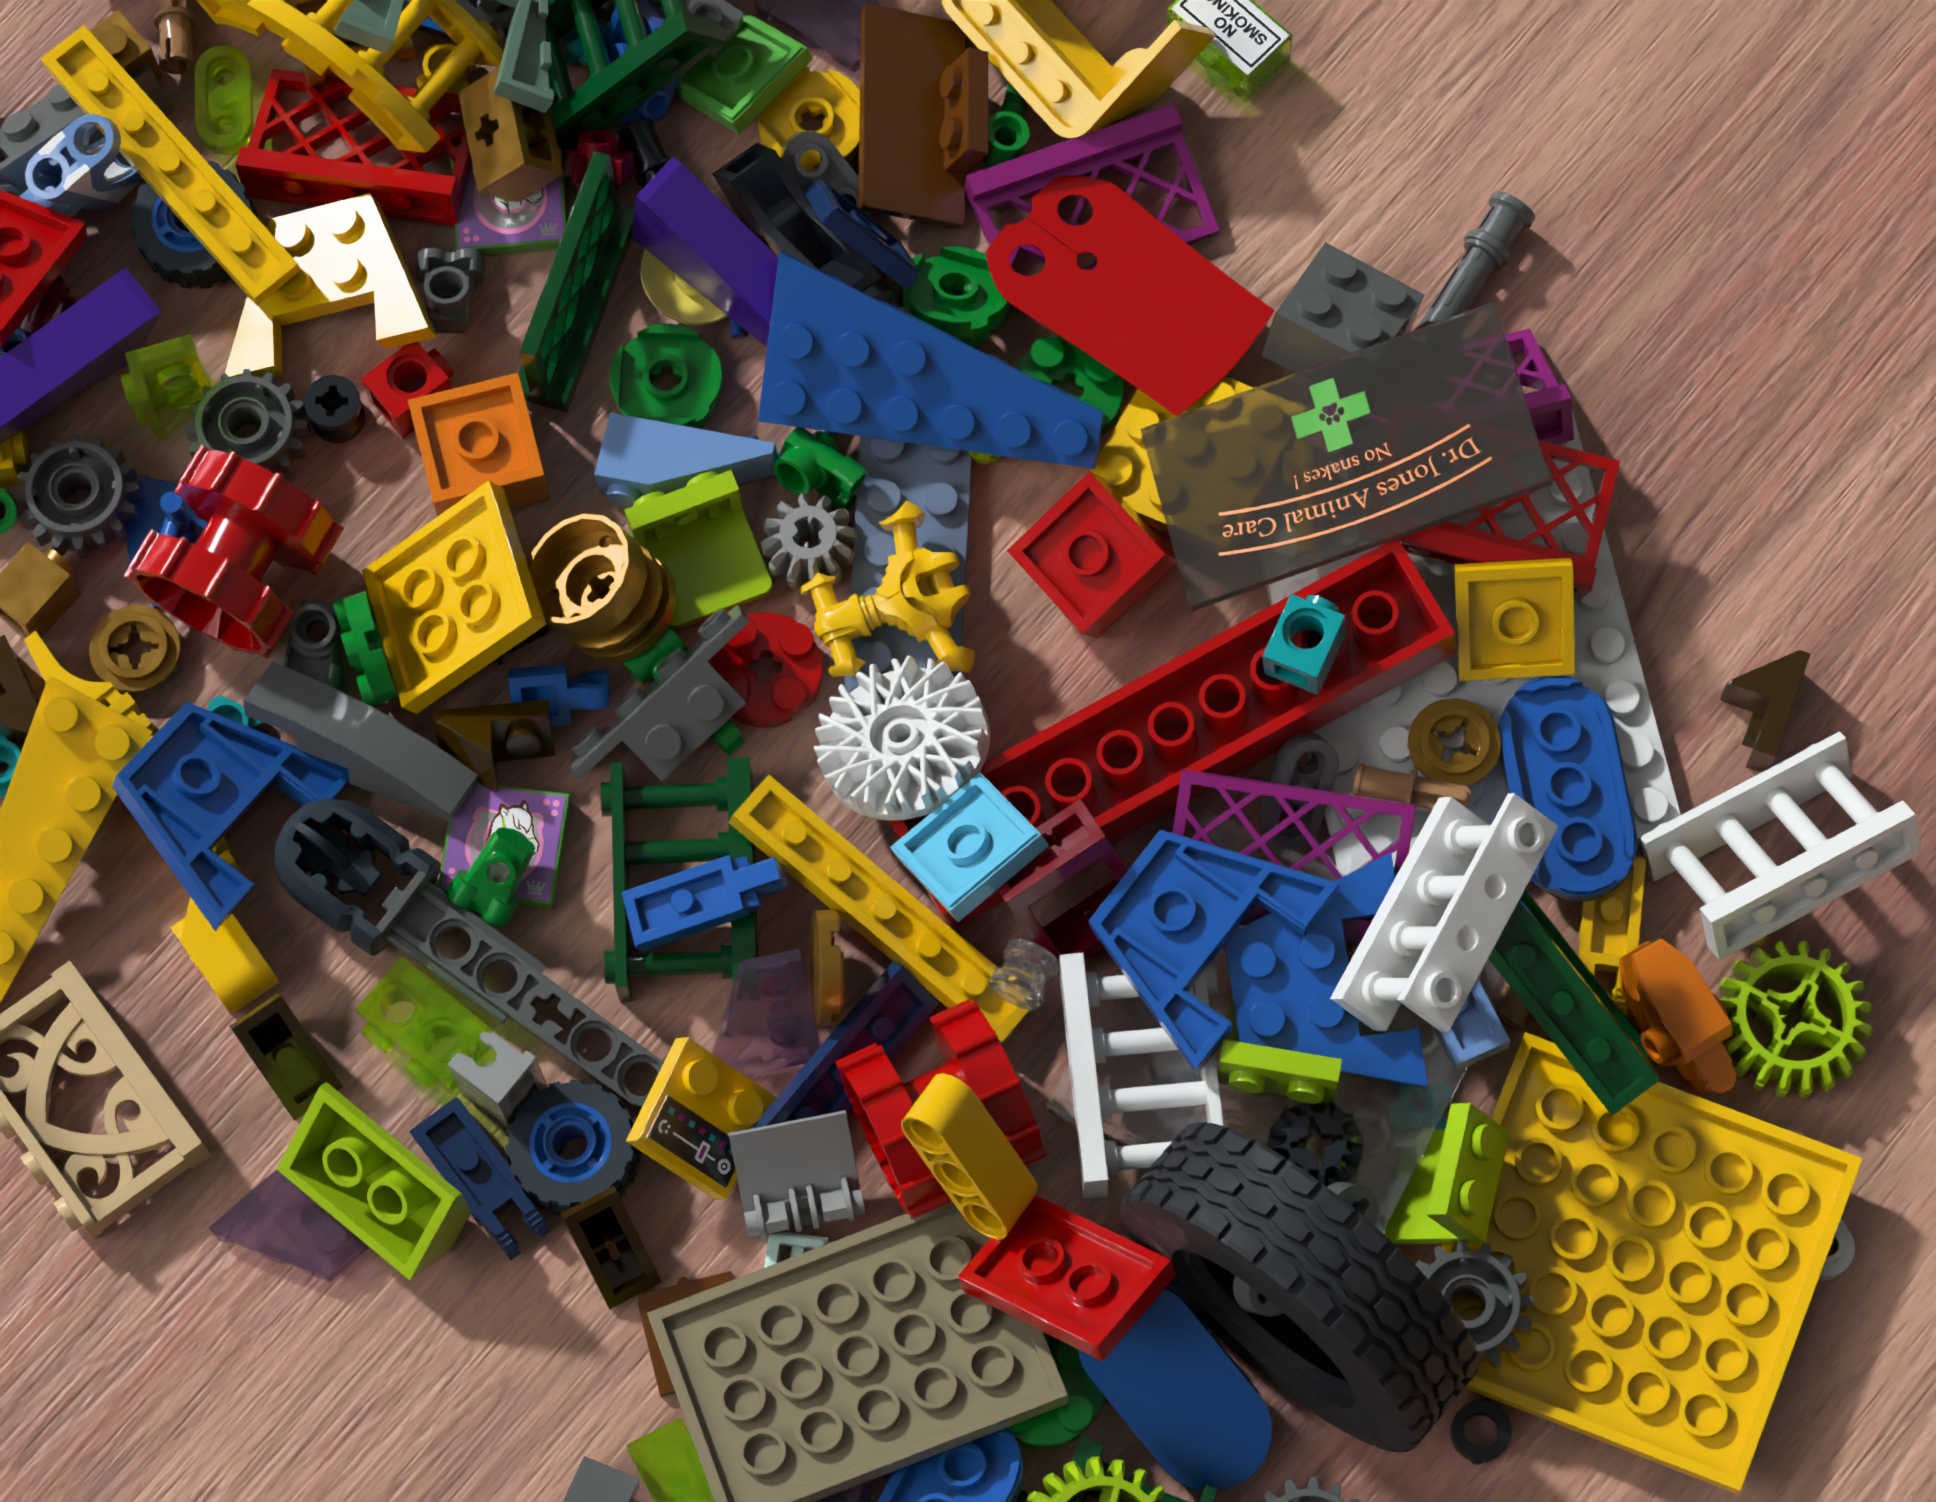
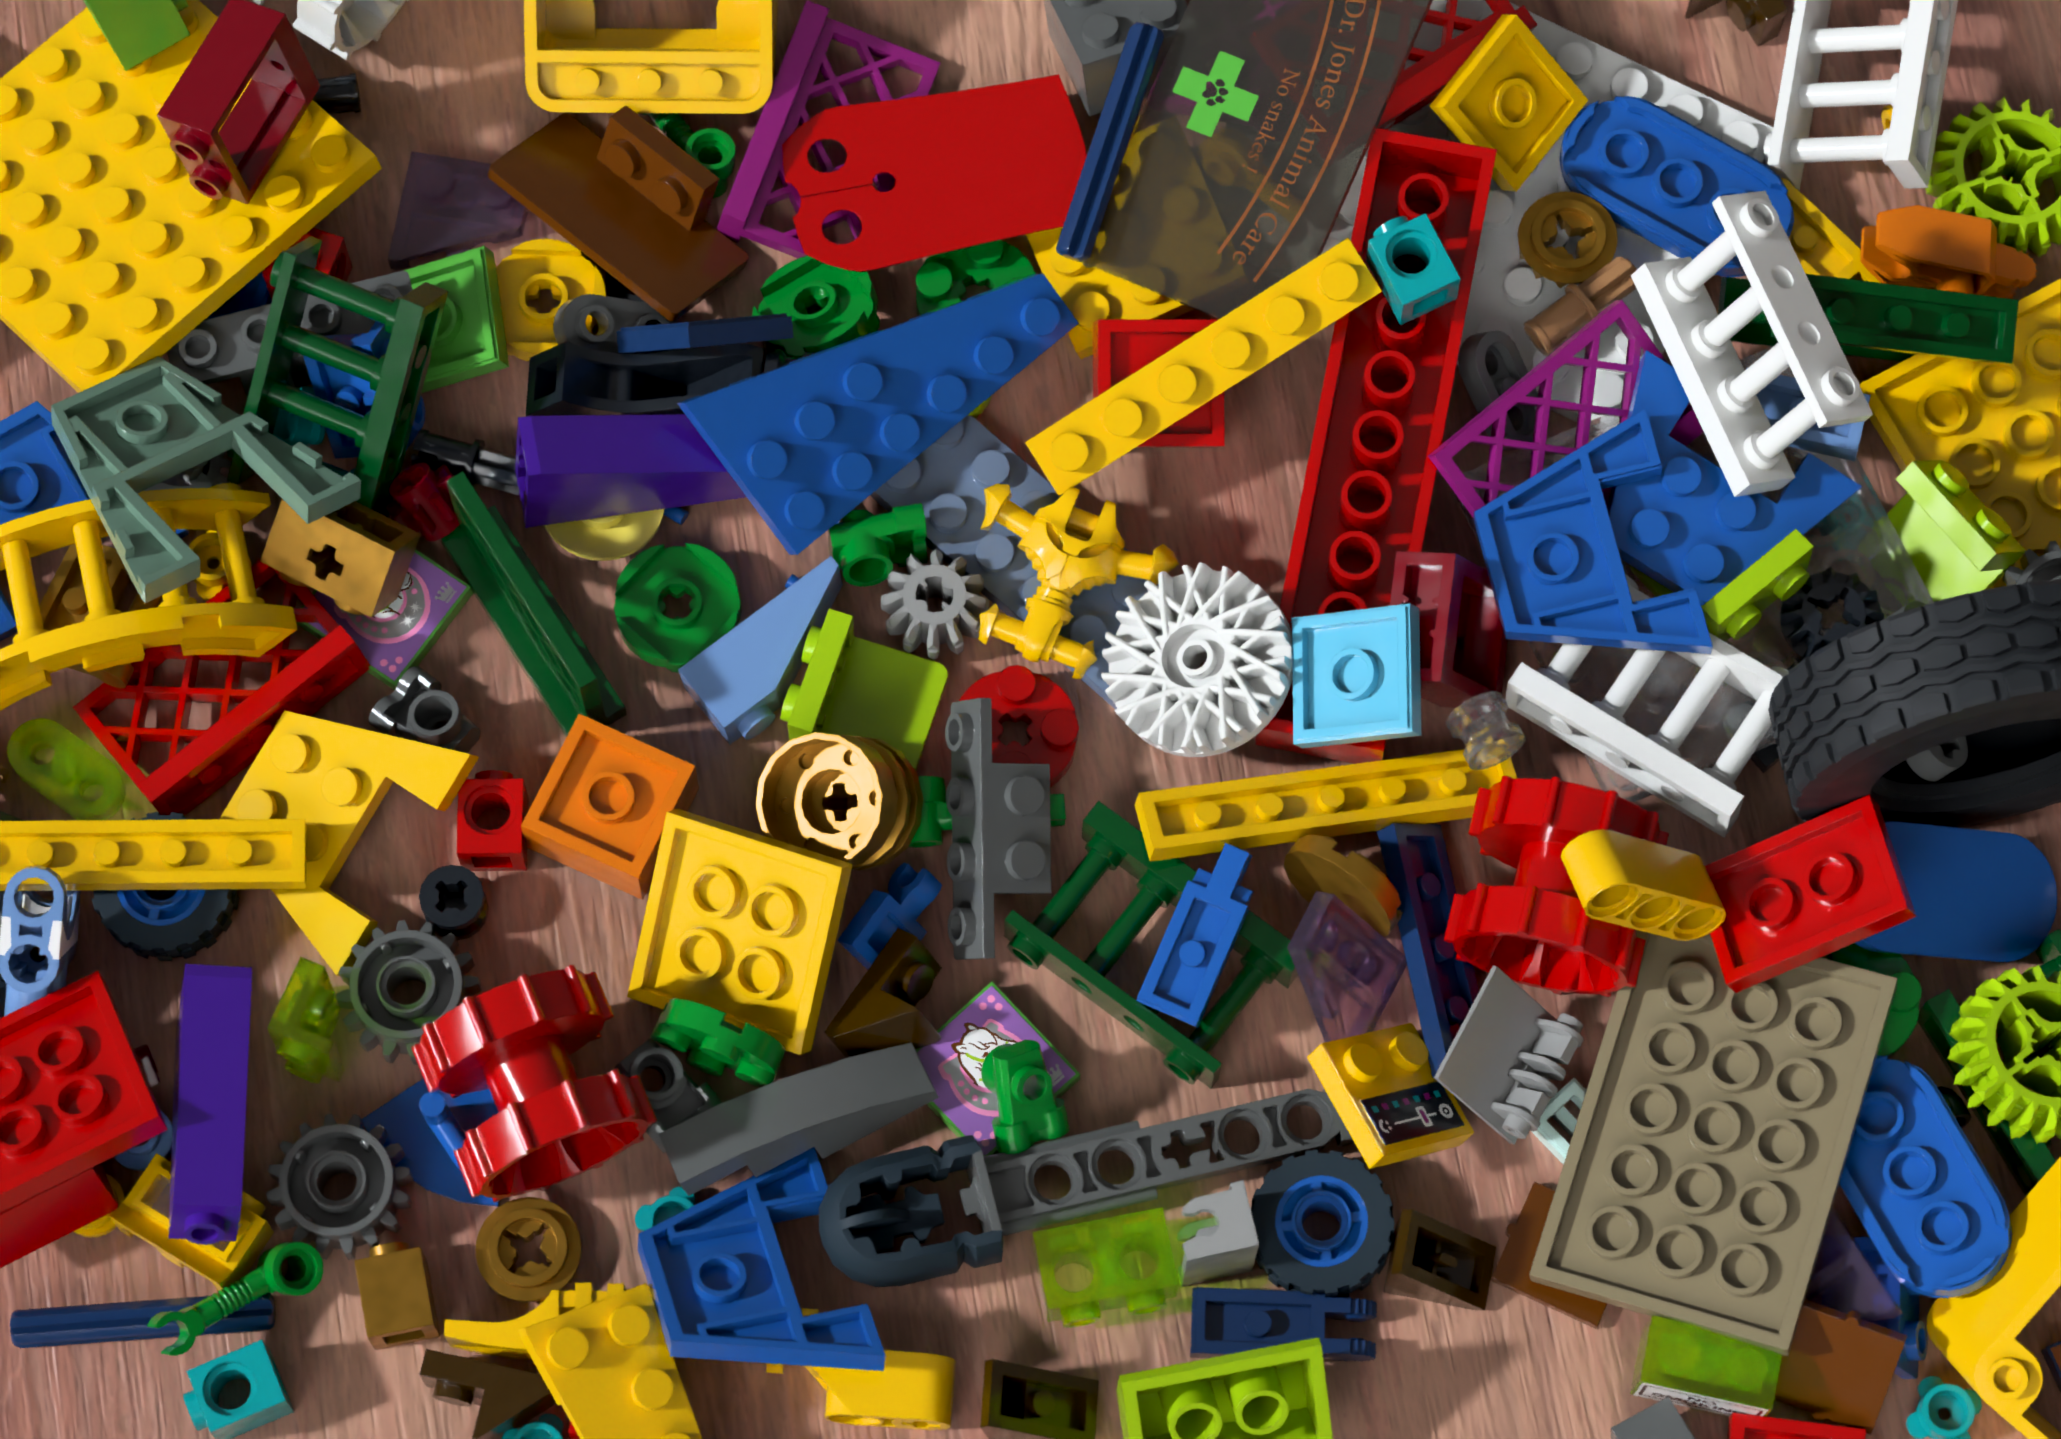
camera: 55 degrees left, 0 degrees up
(1118, 568) = (1203, 366): none -> yellow plate
(1235, 376) = (1110, 142): none -> dark blue axle

